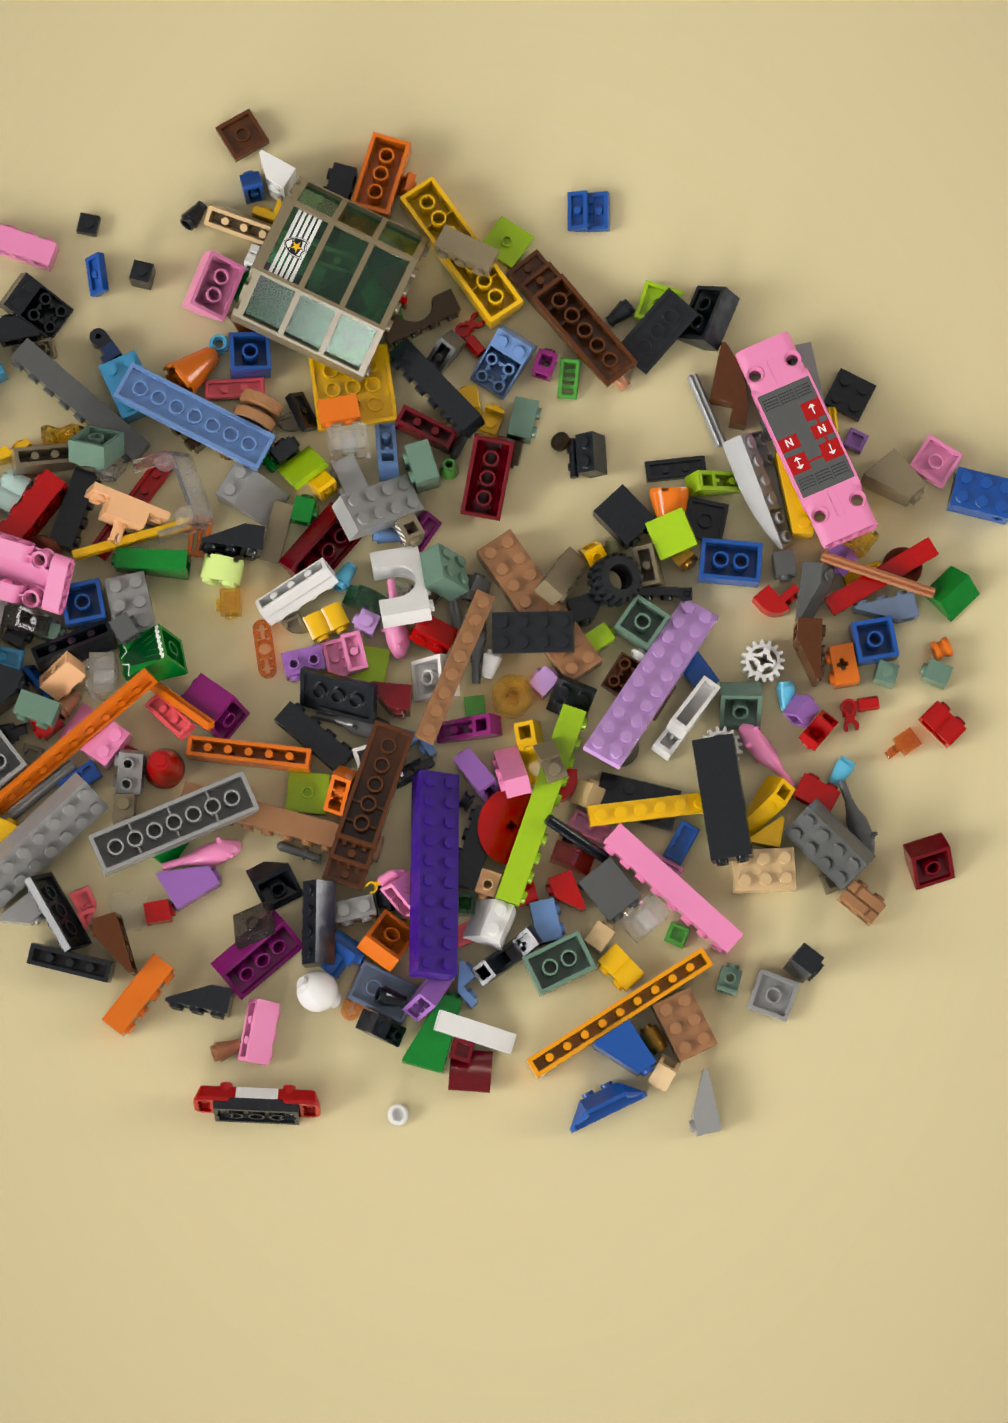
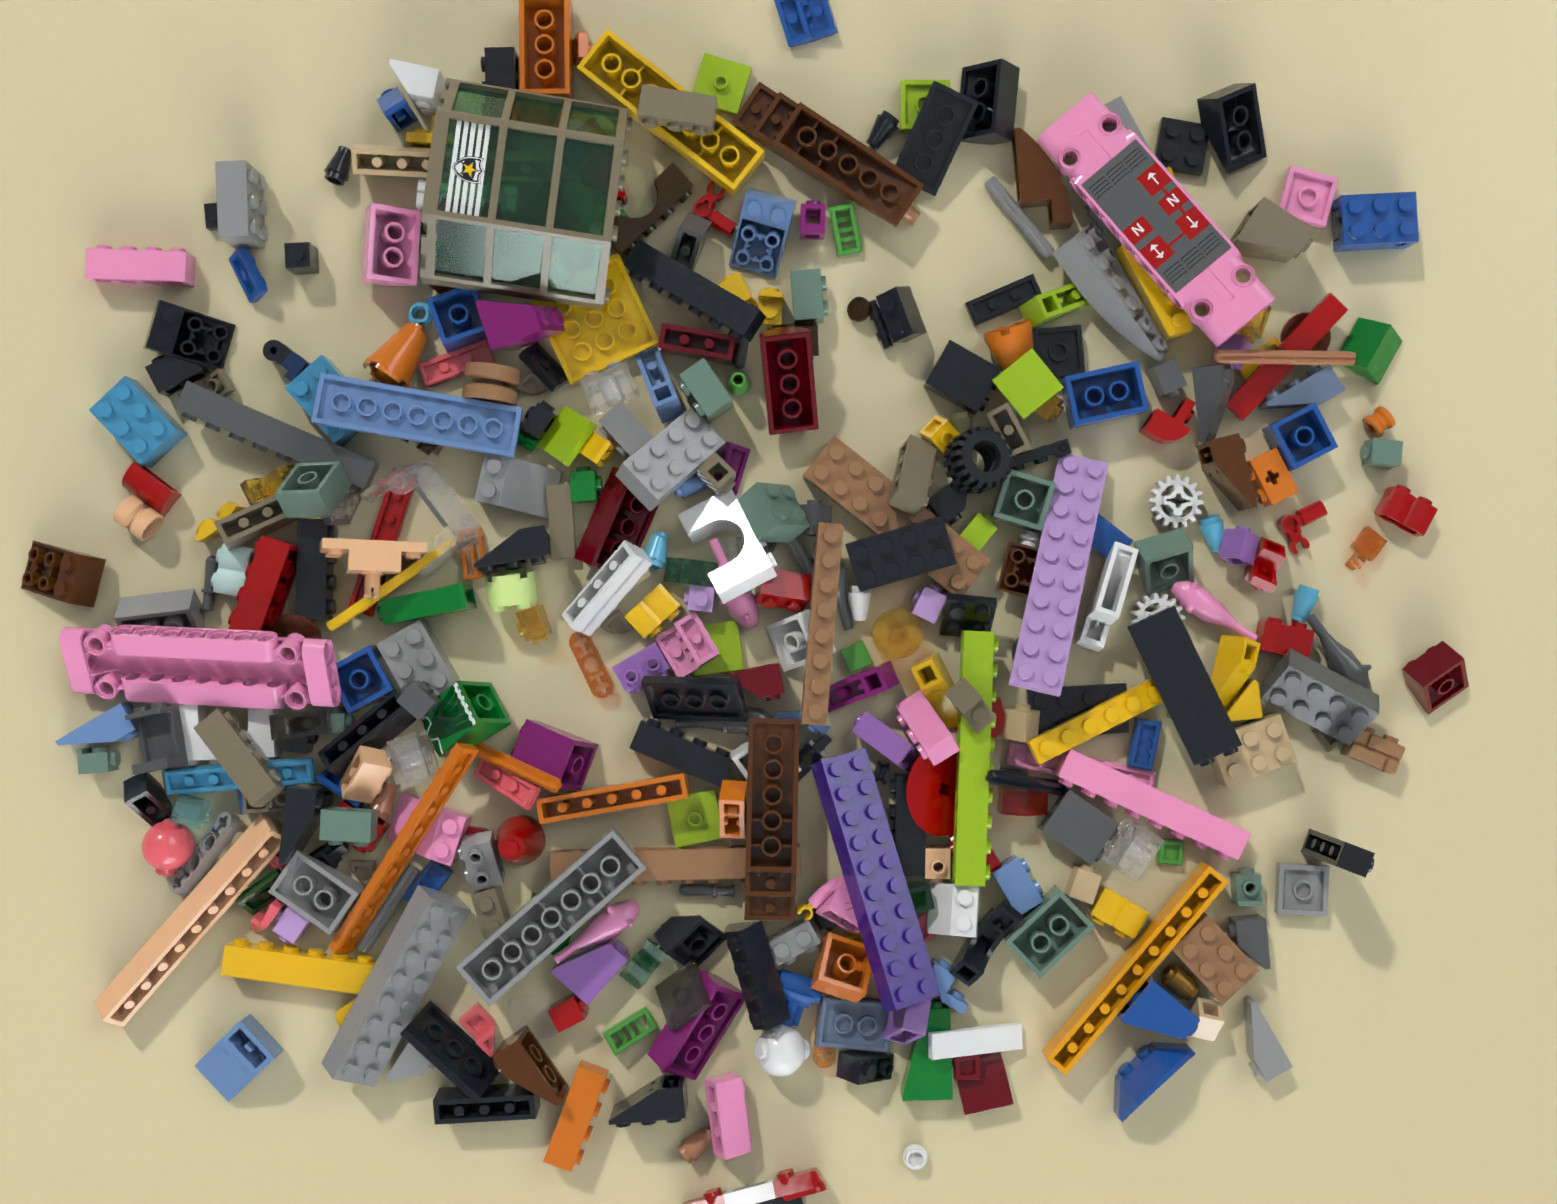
camera: 10 degrees left, 10 degrees up
(110, 221) = (240, 204): none -> light grey brick
(203, 951) = (616, 1049): none -> bright green slope
(231, 891) = (643, 963): none -> clear green brick
(242, 135) = (364, 48): reddish brown plate -> none
(294, 373) = (518, 324): none -> magenta slope
(338, 410) = (587, 354): orange brick -> none
(388, 997) = (865, 1032): black cone -> none
(565, 890) = (1028, 841): red slope -> none
(719, 1018) = (1251, 936): none -> dark grey slope
(855, 440) = (1206, 199): medium lavender tile -> none
(885, 674) = (1323, 473): sand green brick -> none
(892, 391) = (1233, 125): none -> black slope

